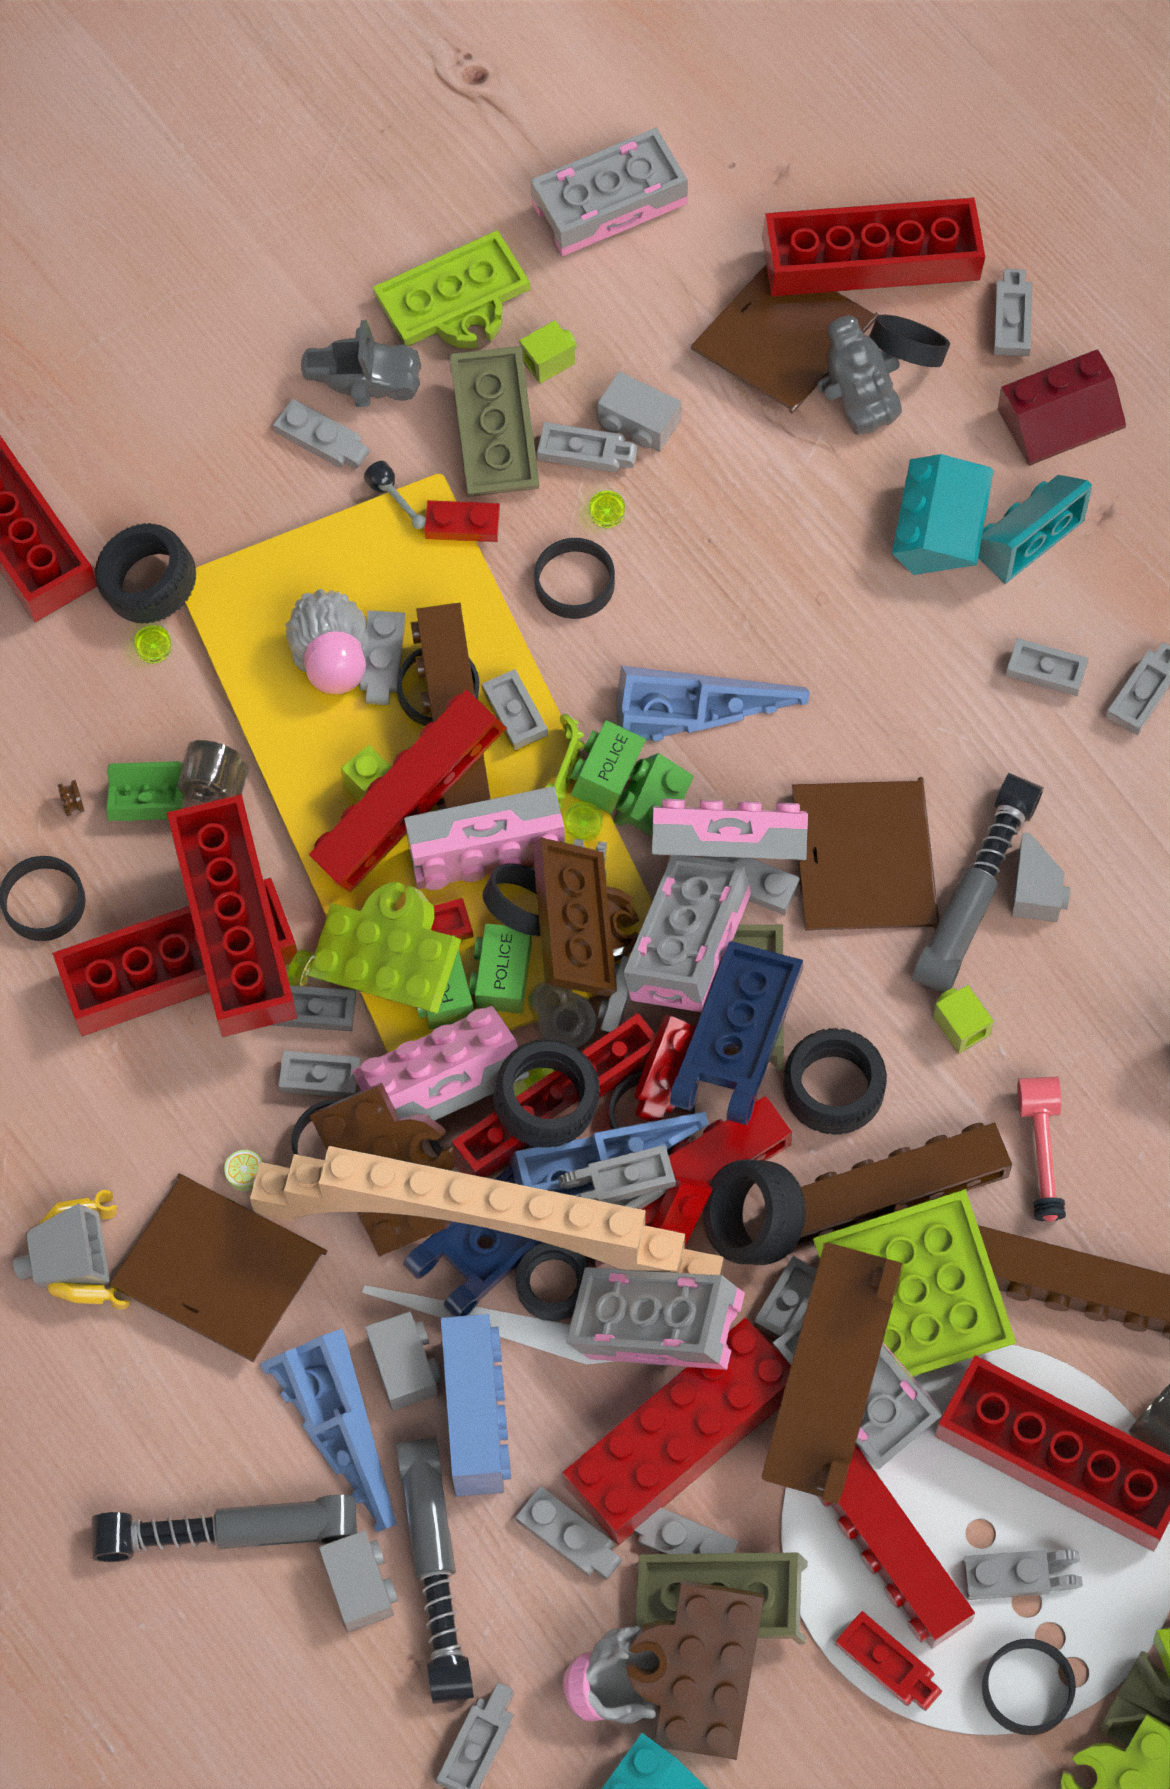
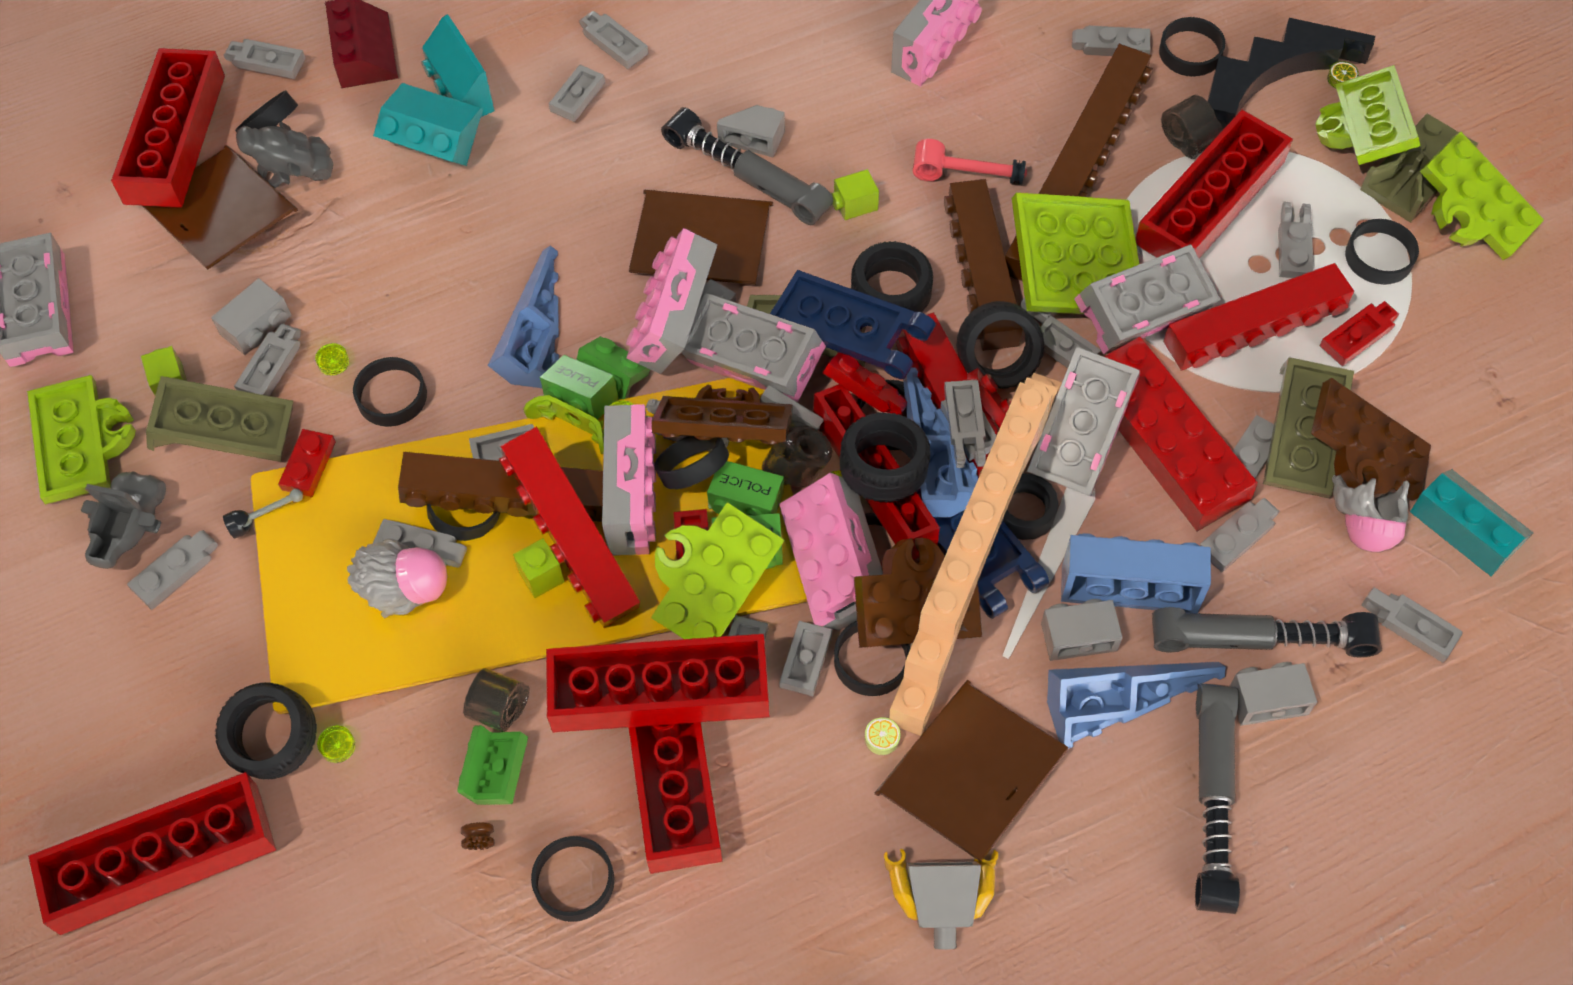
camera: 80 degrees left, 5 degrees down
(832, 1372) = (1153, 299): reddish brown bracket -> none

